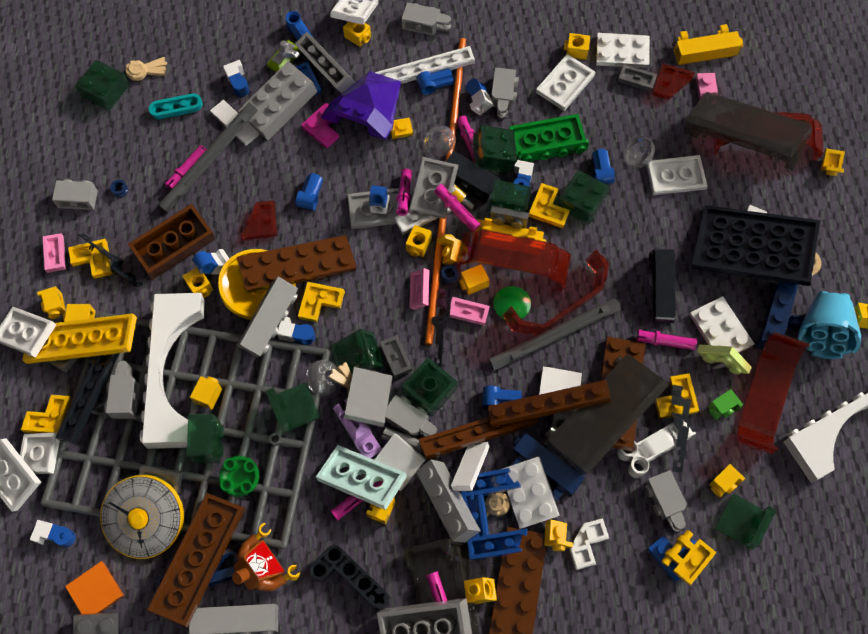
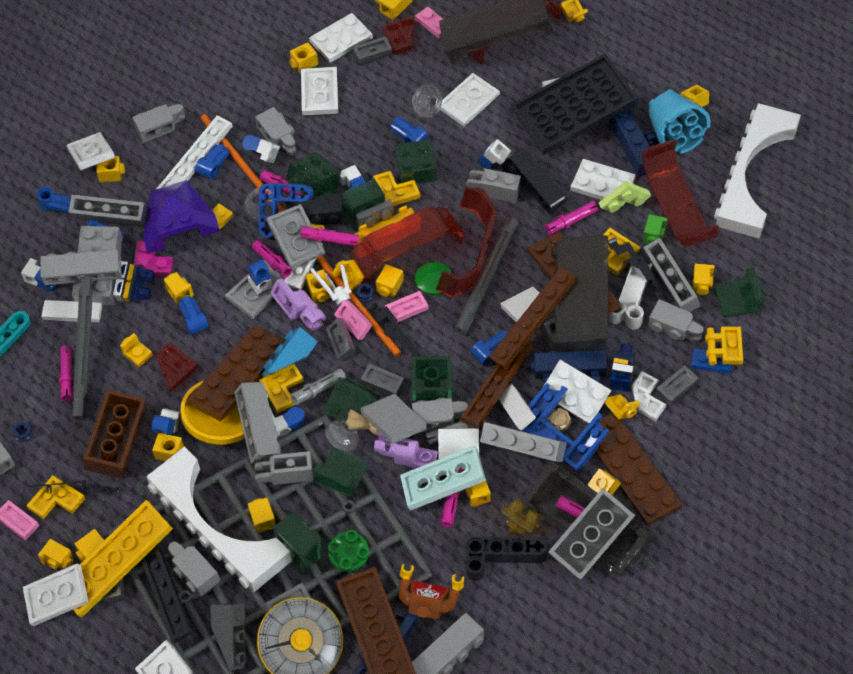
camera: 40 degrees left, 10 degrees down
(50, 420) = (148, 639): yellow plate -> none
(101, 465) = (229, 630): none -> dark grey slope
(247, 187) = (135, 350): none -> yellow bracket
(252, 90) = (74, 266): none -> light grey brick
(255, 371) = (286, 468): none -> light grey hinge
(287, 52) = (64, 231): piece -> none
(298, 132) = (131, 287): none -> clear blue hips
(319, 161) = (178, 287): none -> yellow brick
(342, 322) = (311, 390): none -> light grey pin
(350, 279) = (296, 348): none -> dark azure slope
(388, 562) = (514, 511): none -> clear yellow hips
(389, 245) = (298, 305): none -> lavender plate
(395, 297) = (340, 339): none -> flat silver plate
(428, 260) = (338, 294): none -> white plant
(447, 145) = (277, 196): none -> blue beam
(549, 138) = (349, 138): green bracket -> none
(586, 502) = (622, 368): none -> clear blue hips
(620, 555) = (677, 384): none -> flat silver plate
(630, 264) = (496, 184): none -> light grey hinge
(650, 237) = (494, 153): none -> white leg
(700, 458) = (671, 276): none -> light grey brick

